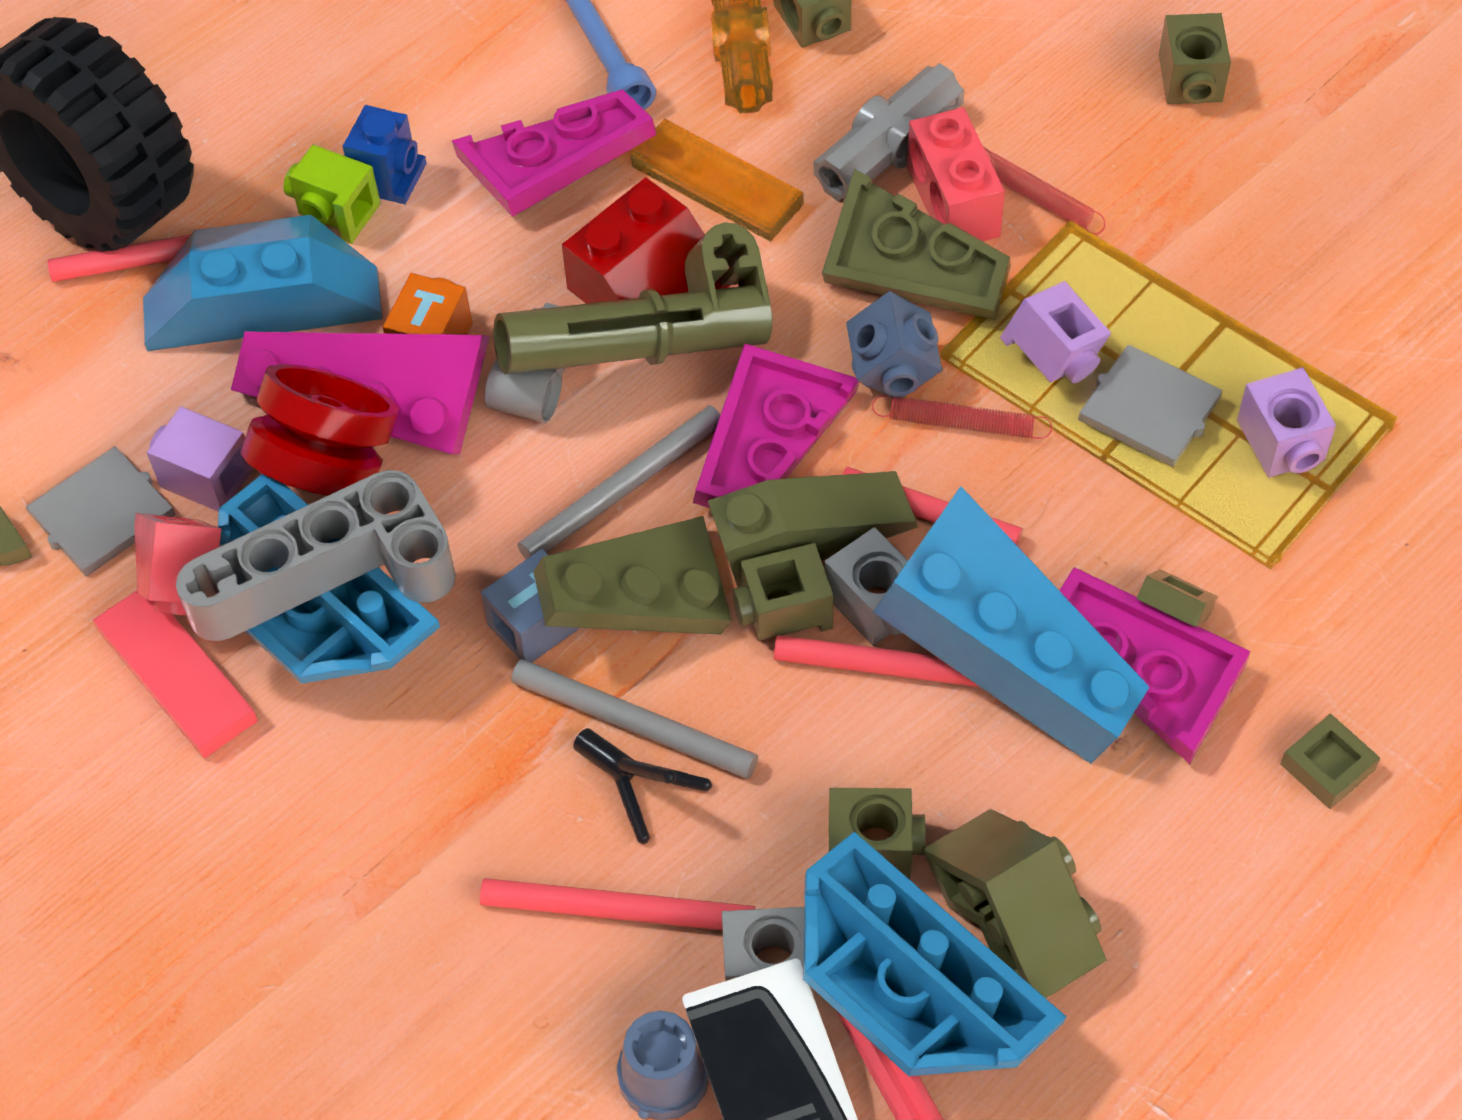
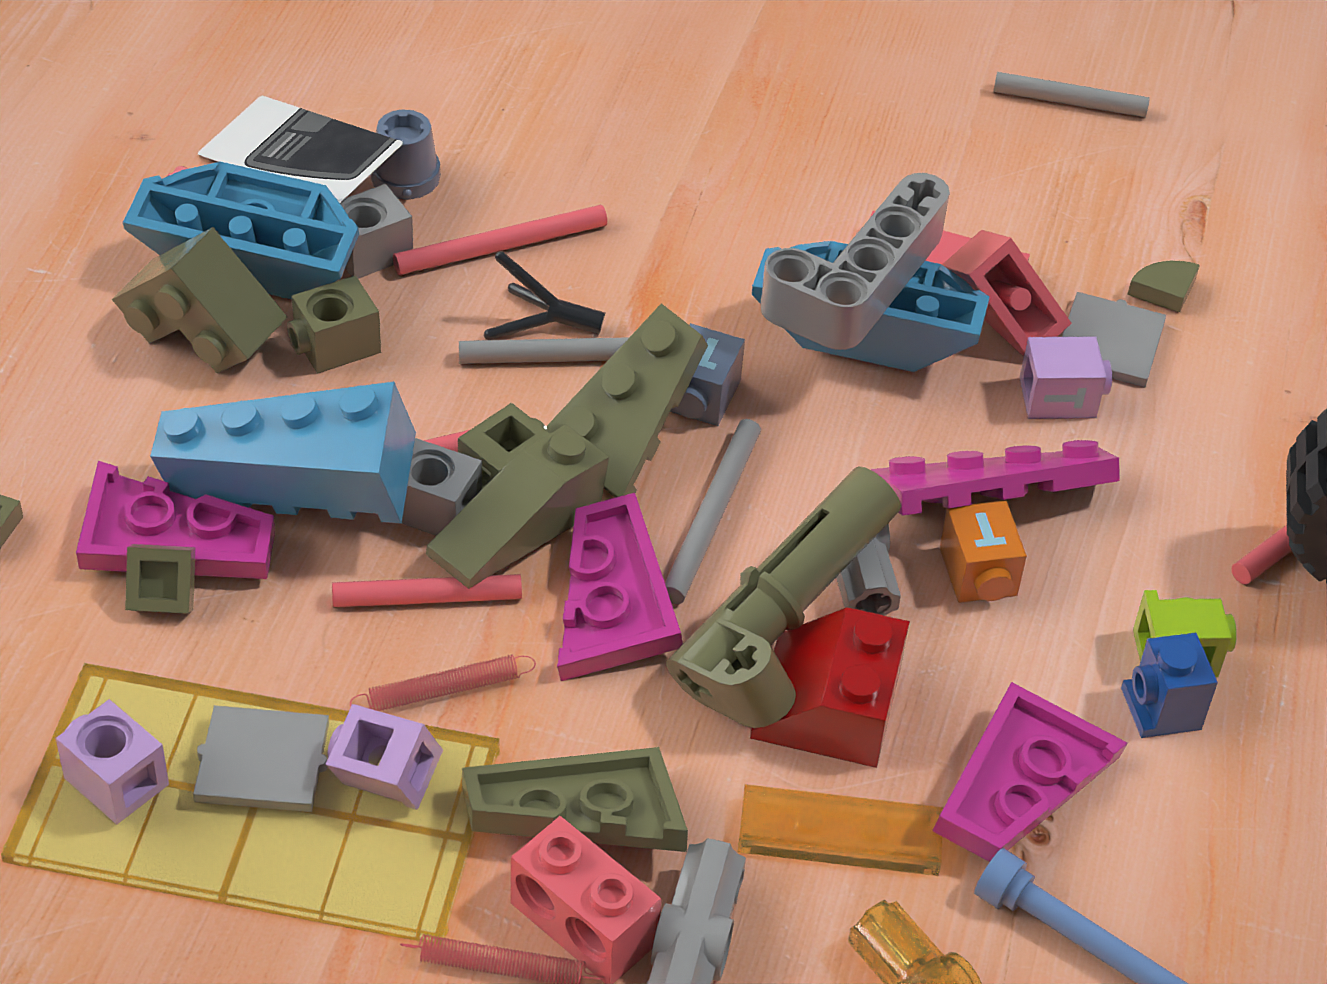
camera: 145 degrees right, 10 degrees down
(259, 280) = (1159, 531): dark azure wedge -> none
(317, 429) = (1006, 391): red wheel -> none
(893, 346) = (538, 685): sand blue brick -> none

